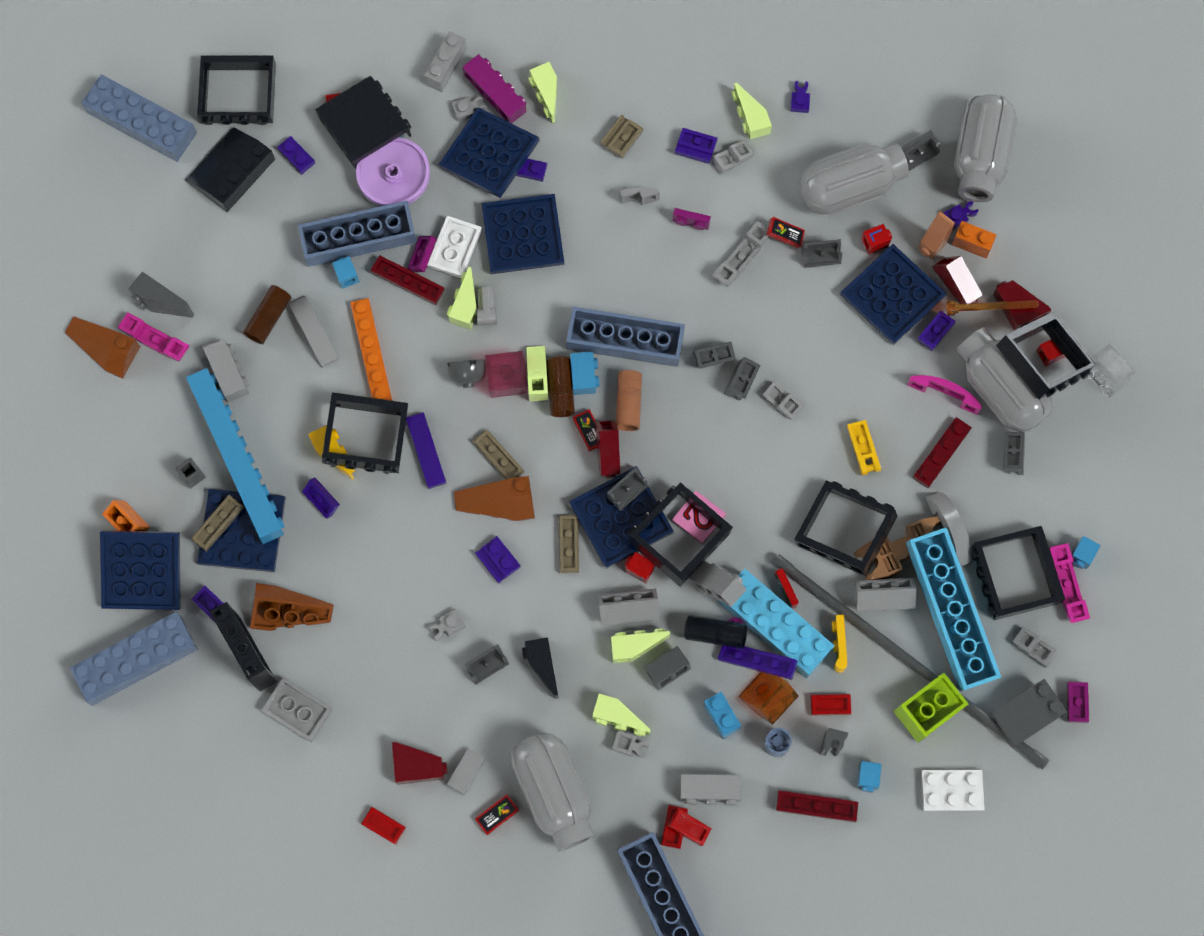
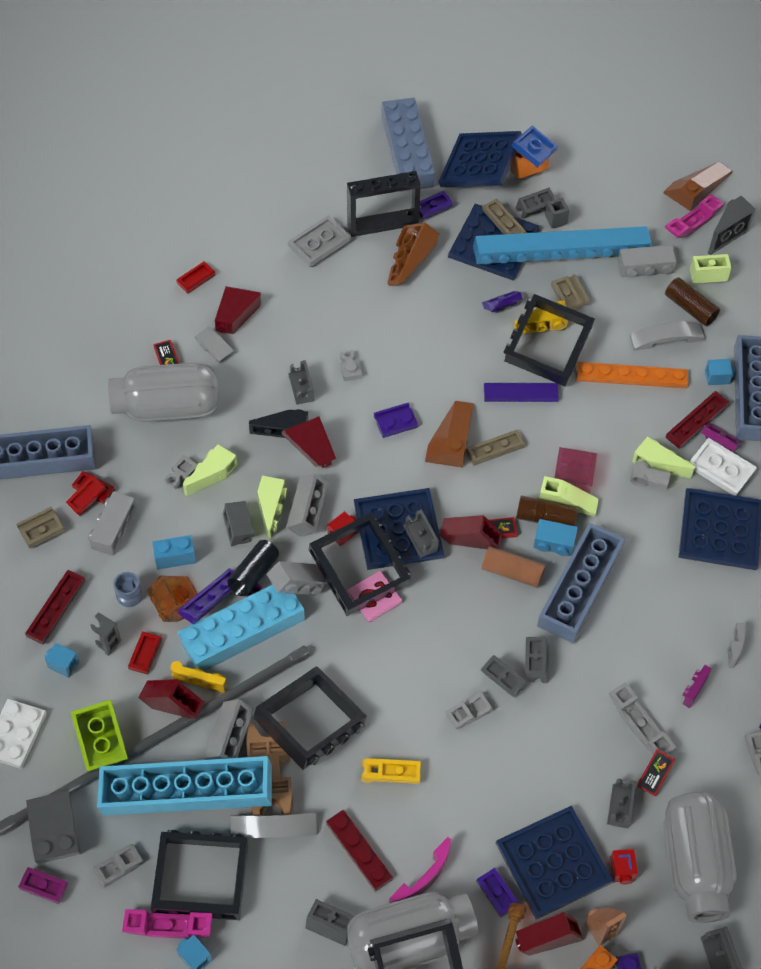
camera: 105 degrees right, 15 degrees down
(116, 511) = (534, 146): none -> blue plate
(180, 498) = (534, 201): none -> dark grey hinge
(221, 305) = (710, 268): none -> yellowish green brick
(288, 435) = (570, 291): none -> dark tan plate
(467, 372) = (587, 437): dark grey cylinder -> none
(558, 626) = (311, 441): none -> dark red slope
(568, 544) = (387, 479): dark tan tile -> none
(739, 858) = (40, 527): none -> dark tan plate
(786, 588) = (271, 647): red tile -> none
(873, 657) = (171, 697): none -> dark red slope

